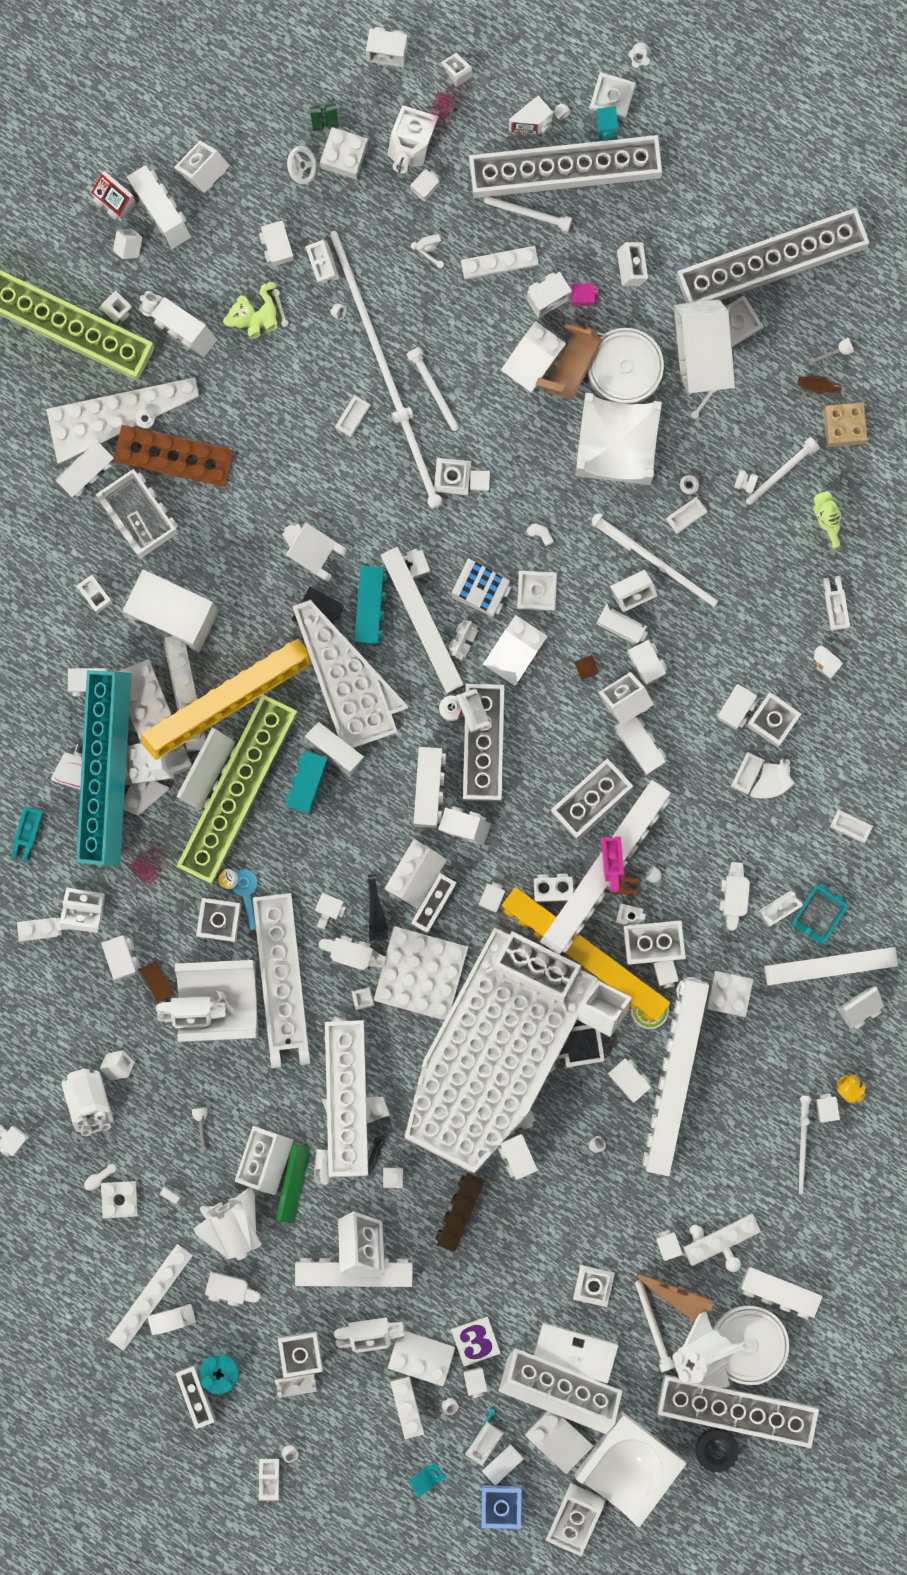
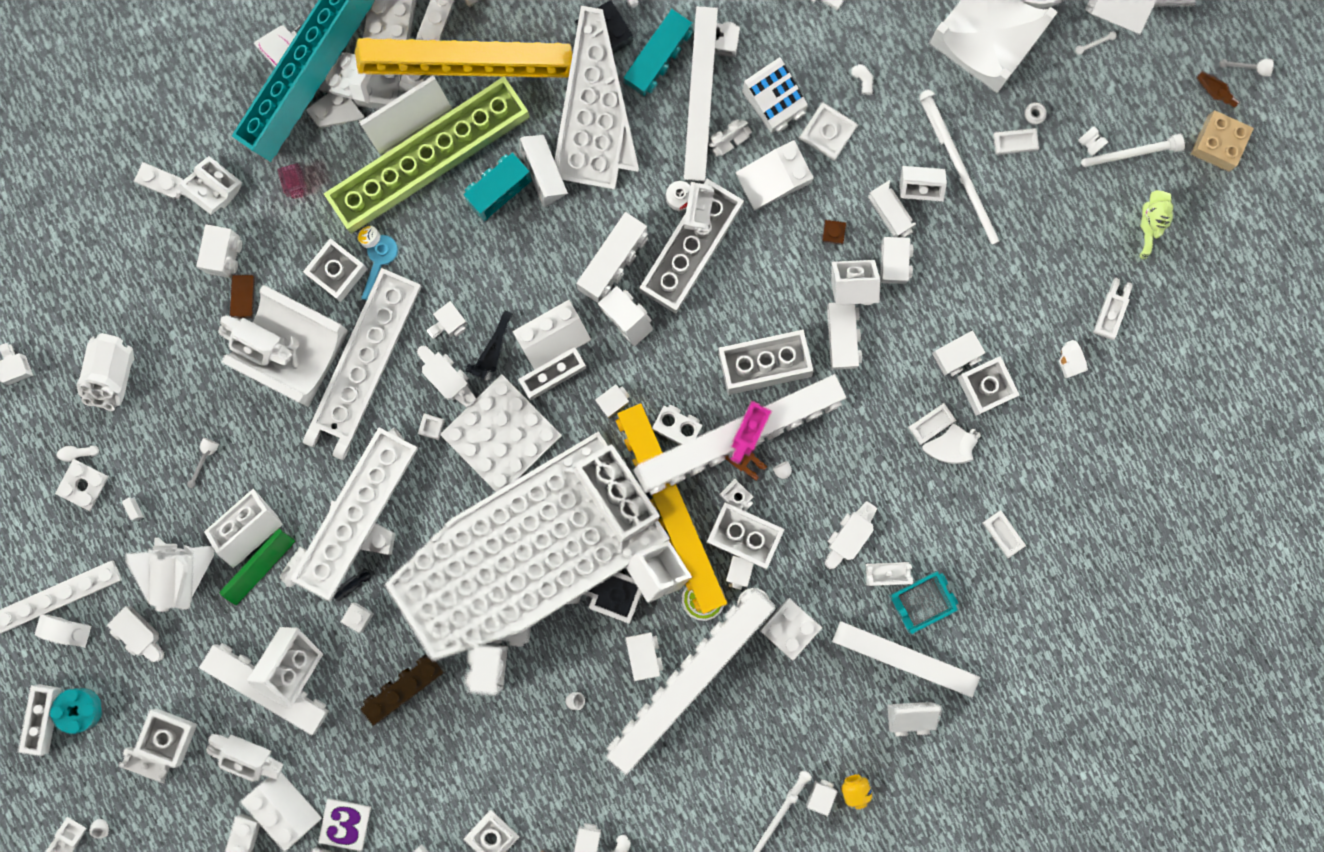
camera: 25 degrees right, 0 degrees up
(27, 831) = (203, 82): teal hinge -> none
(117, 1065) = (156, 354): white panel -> none

